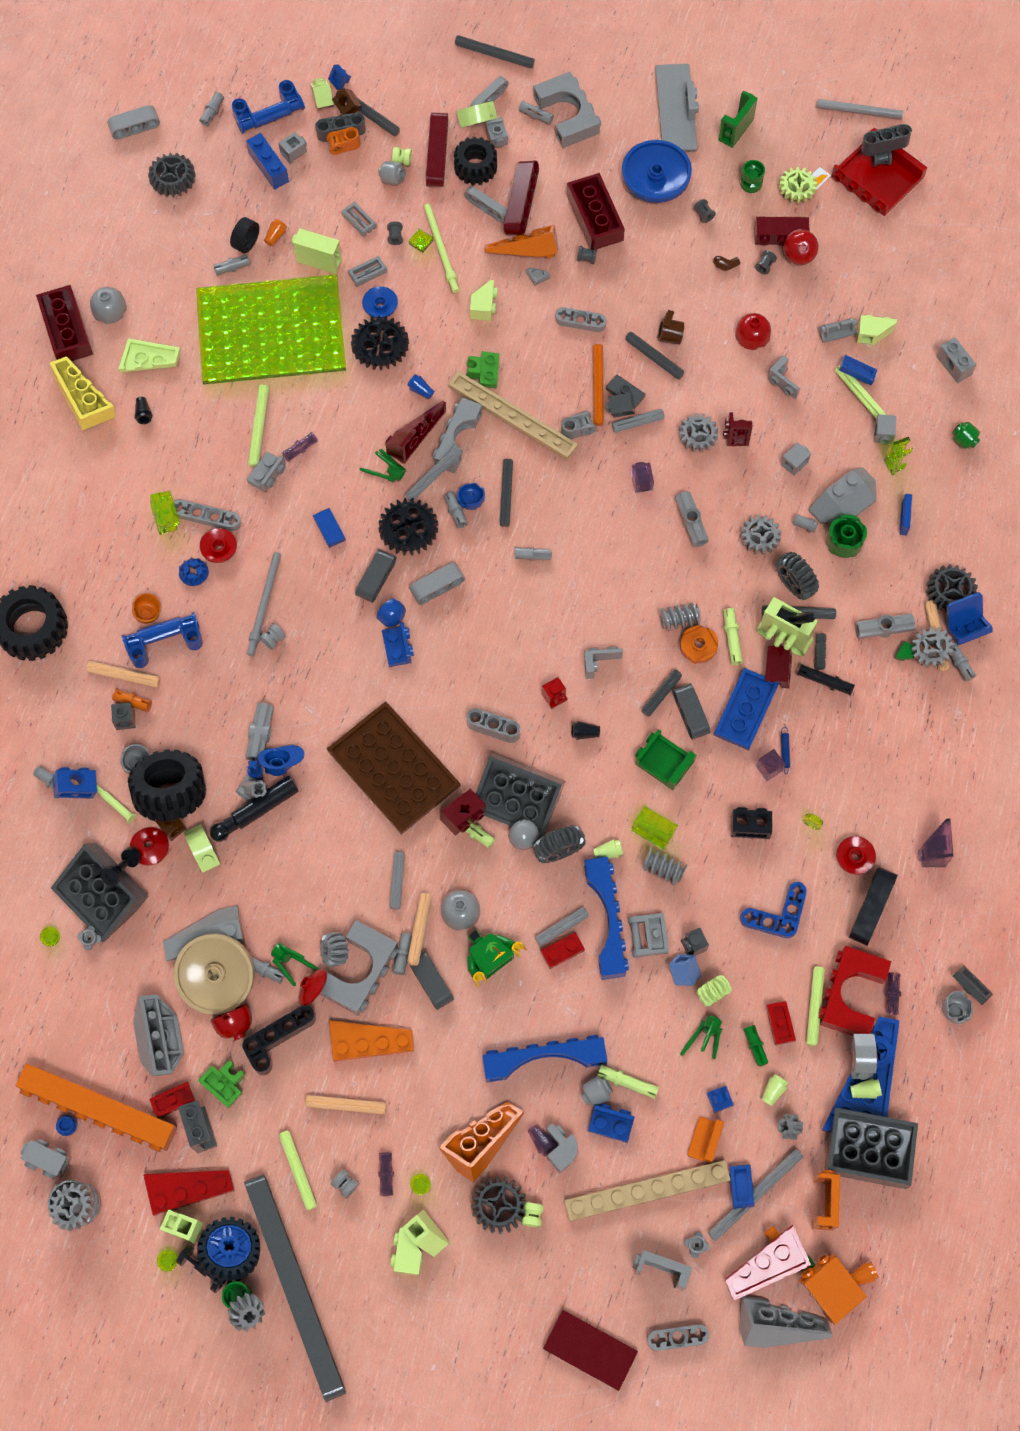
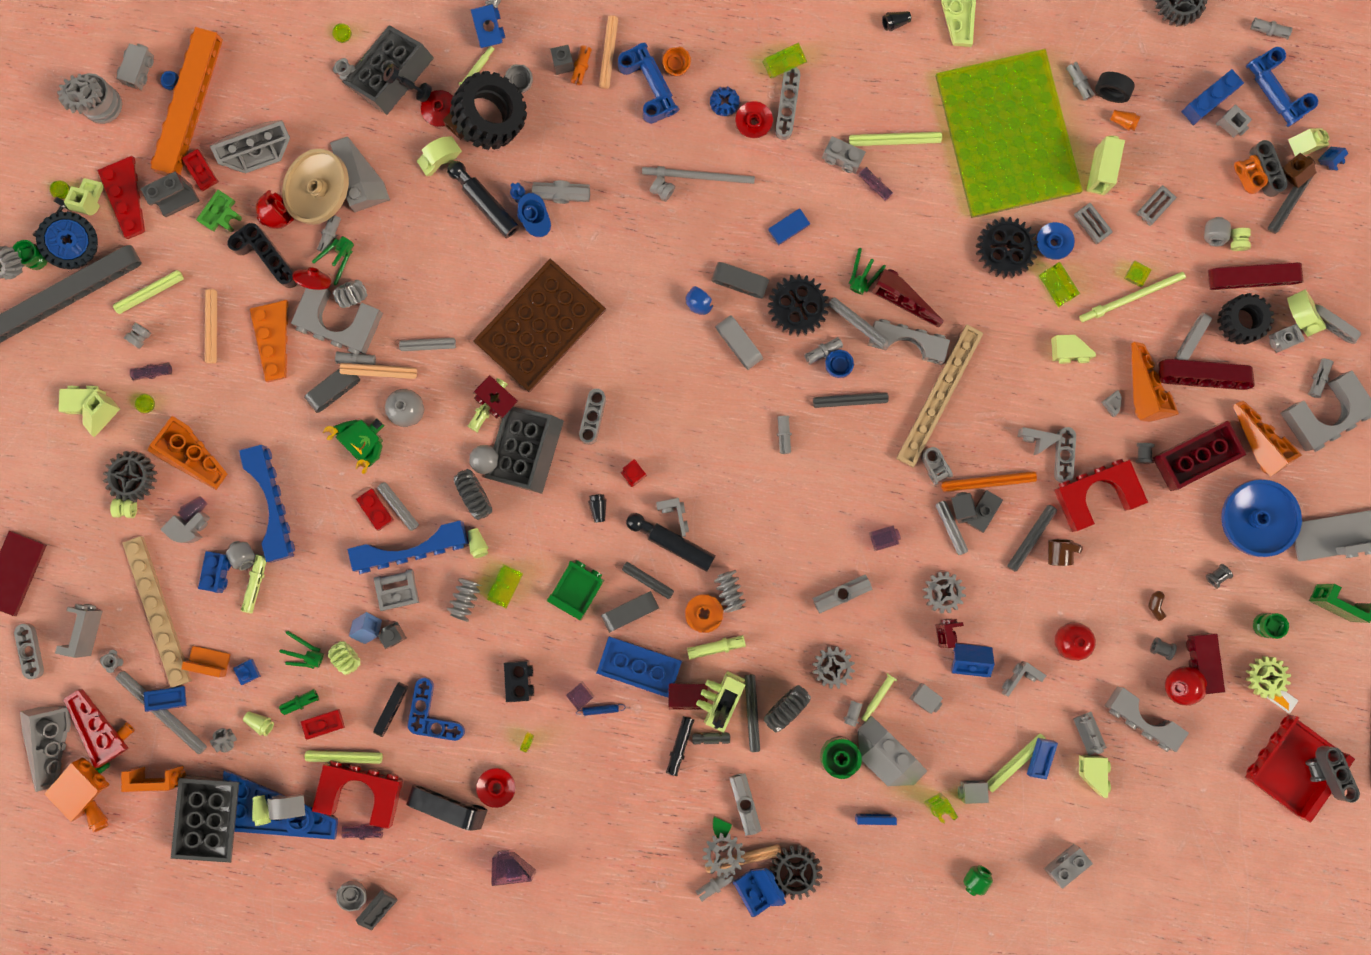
camera: 85 degrees right, 15 degrees up
(251, 788) = (499, 192): light grey piece -> none
(395, 233) = (1142, 245): dark grey bush -> none
(396, 645) = (668, 312): blue bracket -> none
(419, 386) = (960, 297): blue cone -> none
(421, 304) = (1059, 284): none -> clear neon green hinge
(484, 368) = (991, 361): bright green plate -> none
(564, 336) = (1042, 438): none -> light grey slope
(597, 156) = (1269, 449): none -> orange wedge
(619, 316) = (1120, 476): none -> red arch
(626, 665) = (671, 542): none -> black piece
(764, 415) = (973, 660): none -> blue panel
(770, 952) = (390, 709): none -> black beam
(791, 500) = (878, 697): none -> yellowish green piece
(814, 297) = (1126, 705): none -> light grey arch

